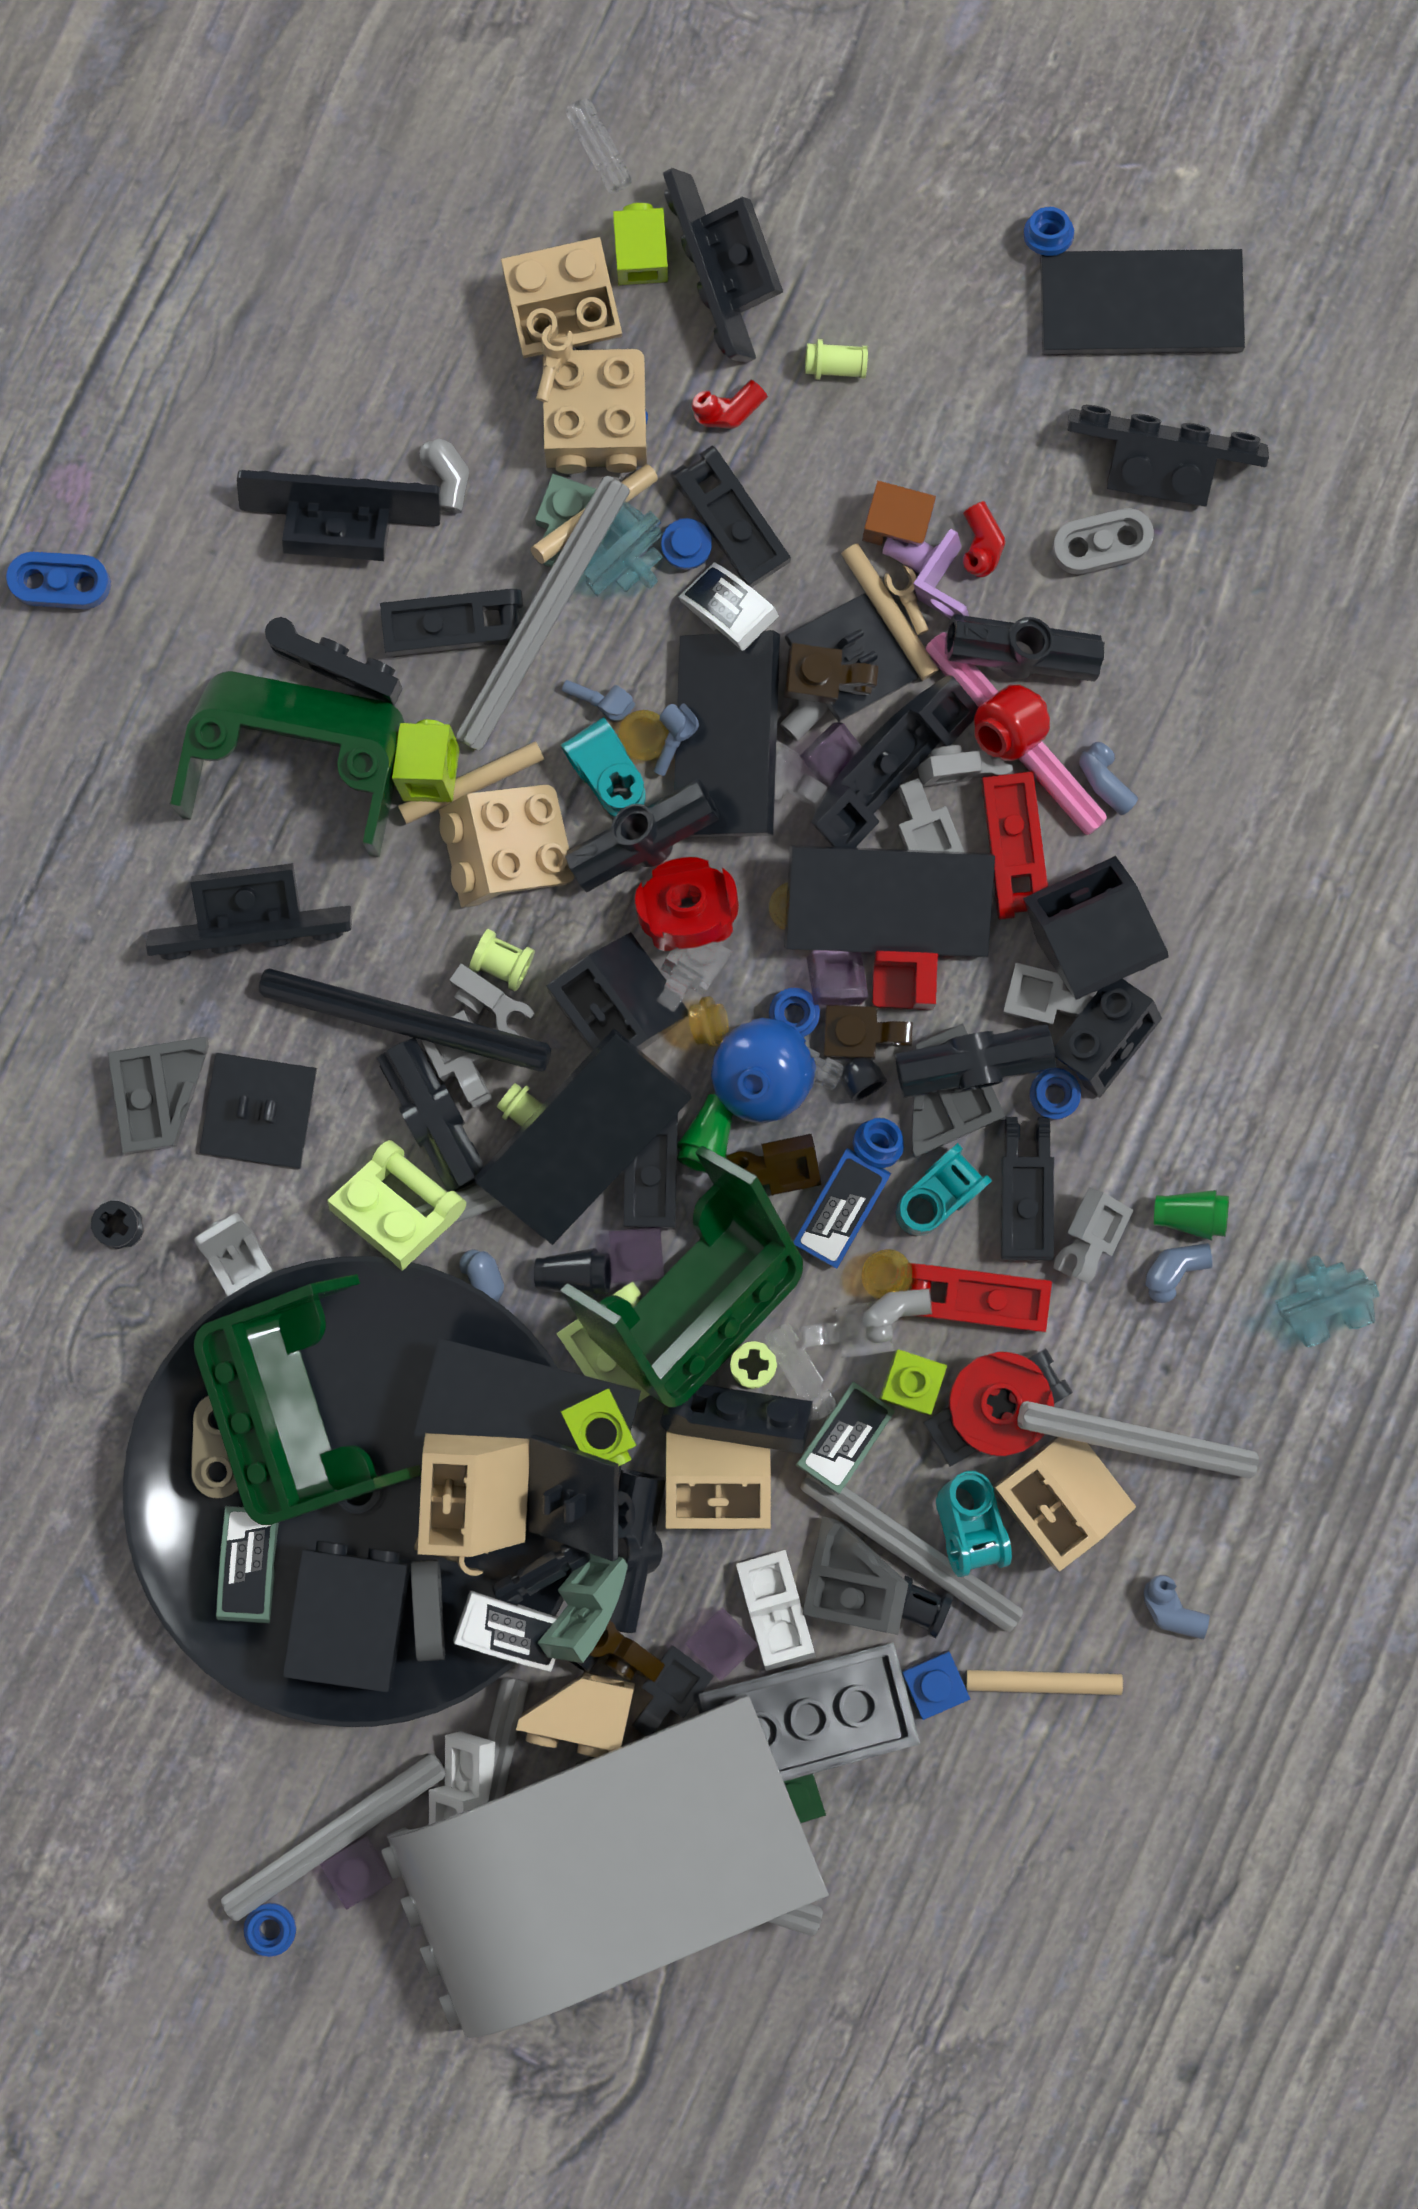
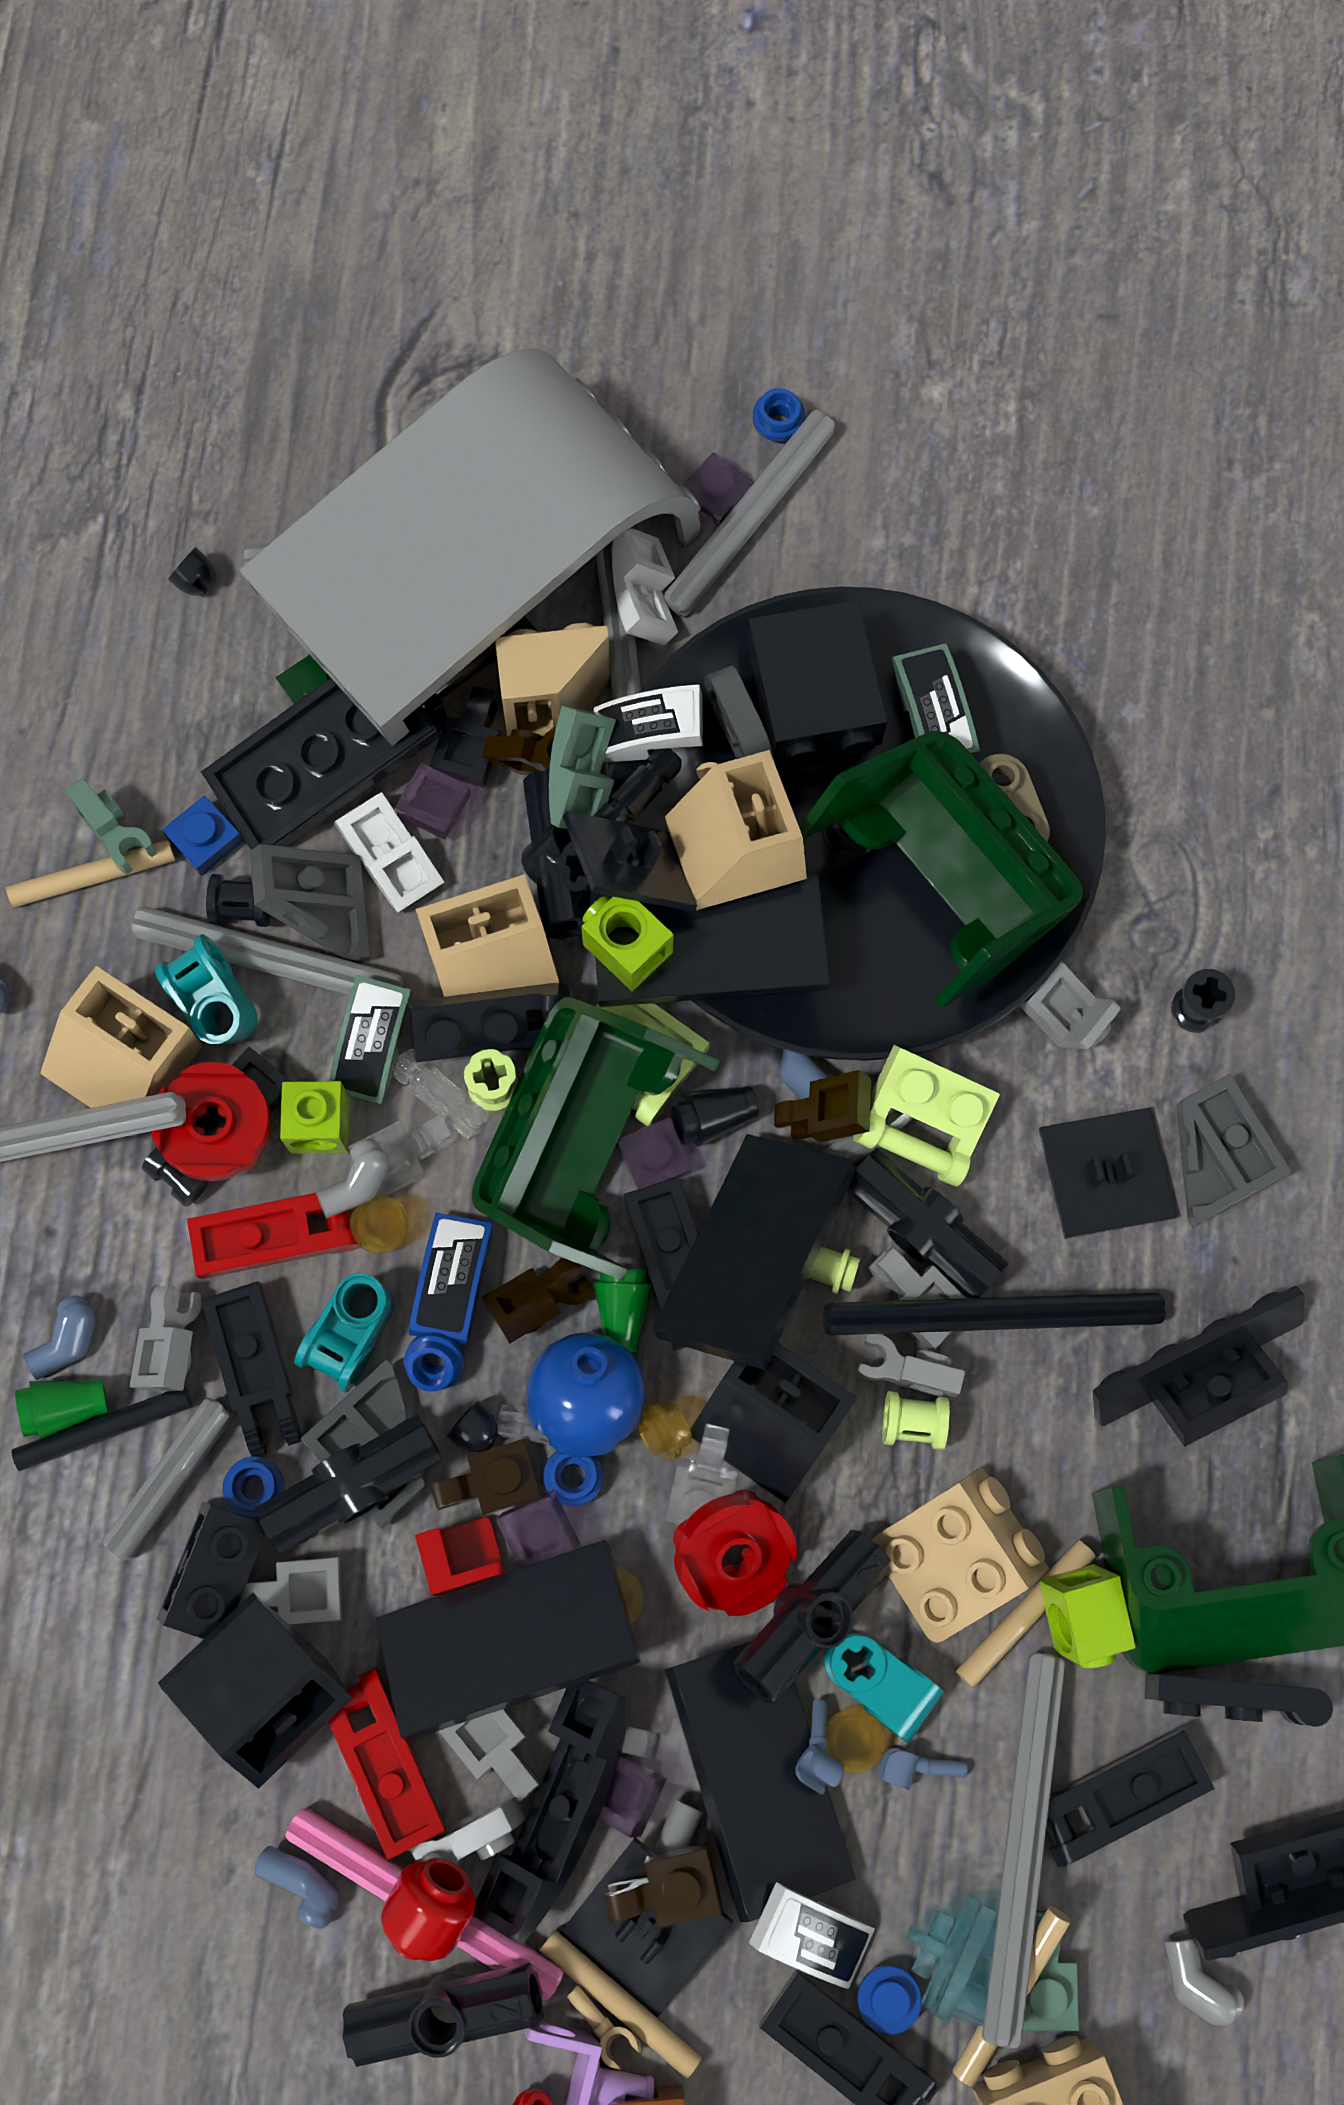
camera: 160 degrees right, 10 degrees down
(475, 1233) = (834, 1109): none -> dark brown plate
(871, 1950) = (190, 569): none -> black hinge
(1019, 1728) = (102, 817): none -> sand green plate
(1121, 1124) = (167, 1479): none -> light grey axle
(1167, 1184) = (100, 1428): none -> black bar

